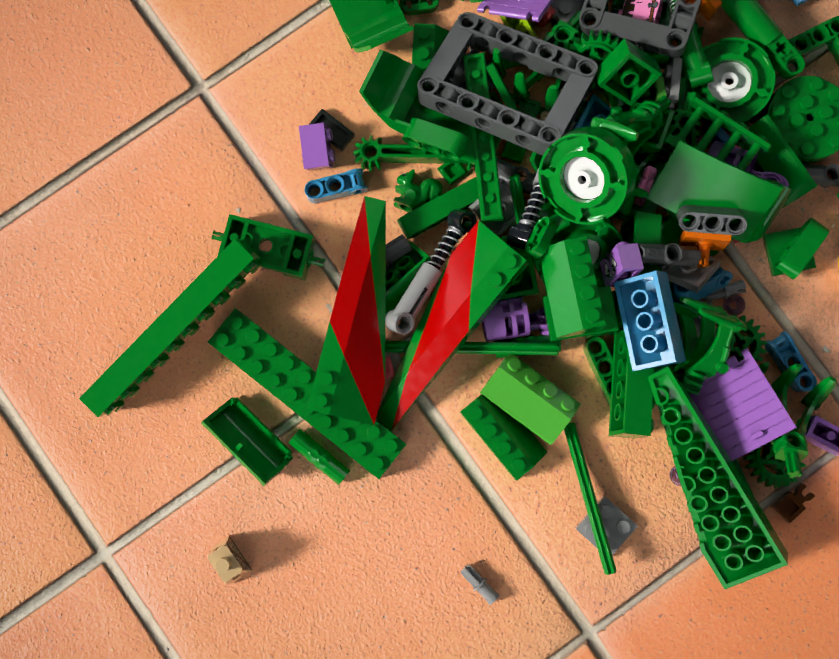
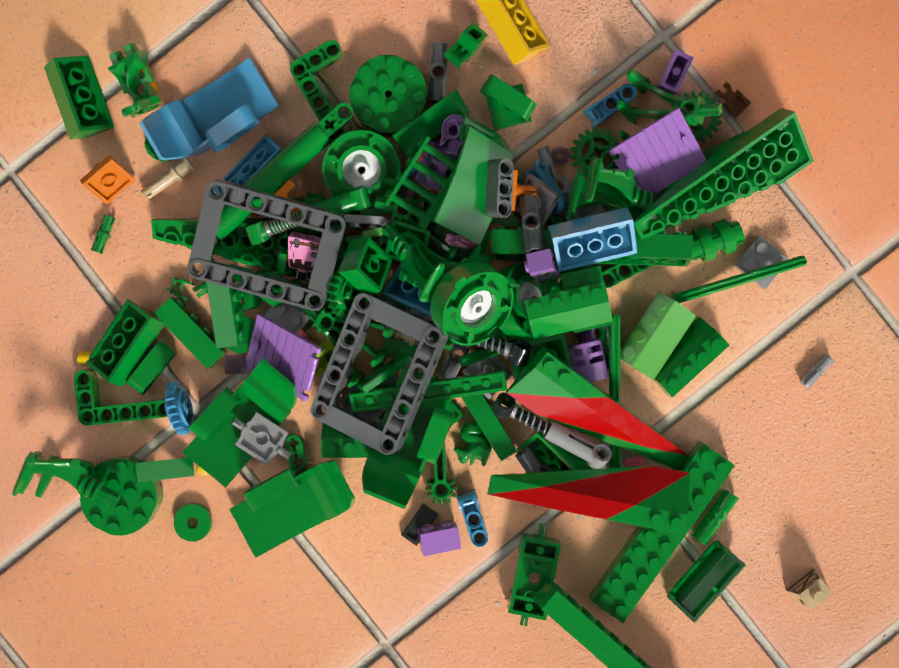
camera: 95 degrees left, 5 degrees up
(541, 237) = (522, 338): green beam -> none
(637, 479) = (722, 237): none -> green piece

